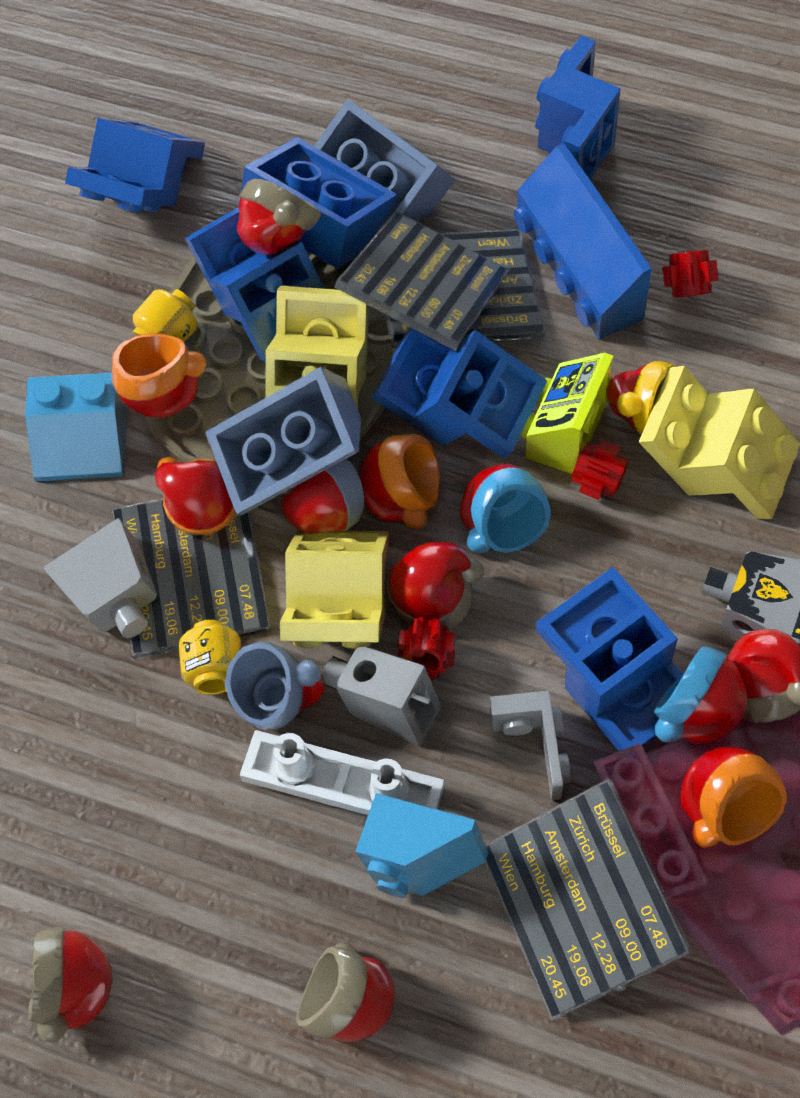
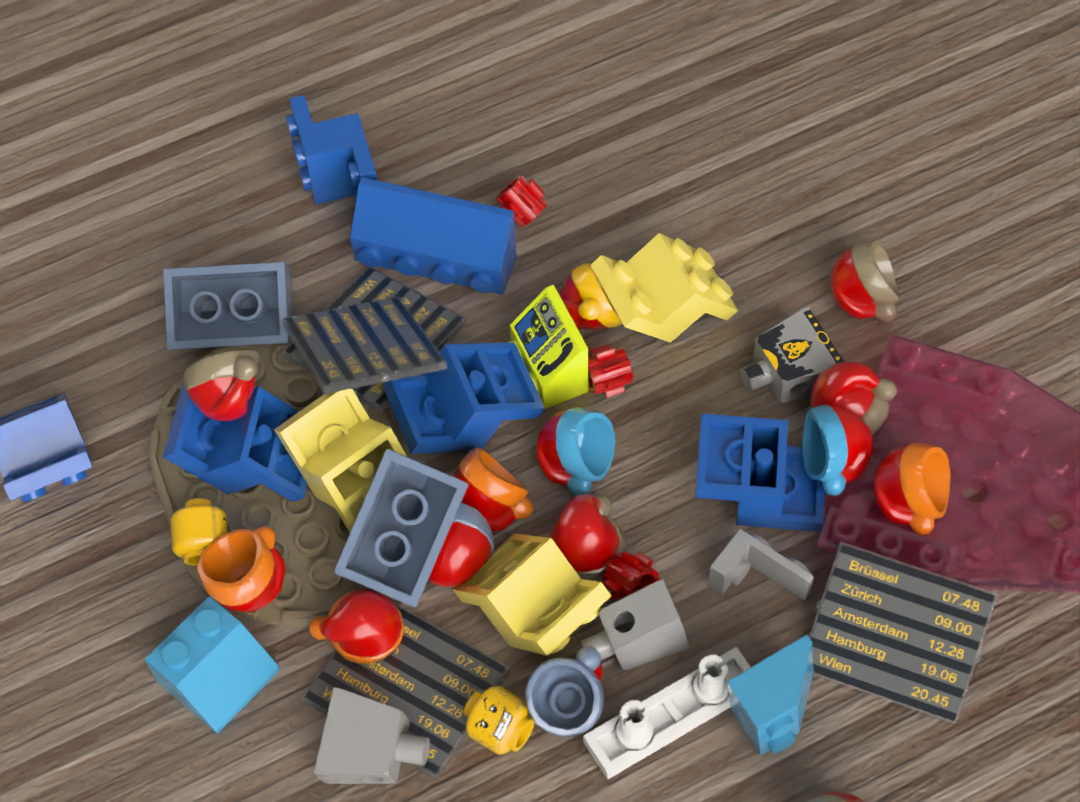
camera: 50 degrees left, 5 degrees down
(348, 200) = (186, 342): blue slope -> none

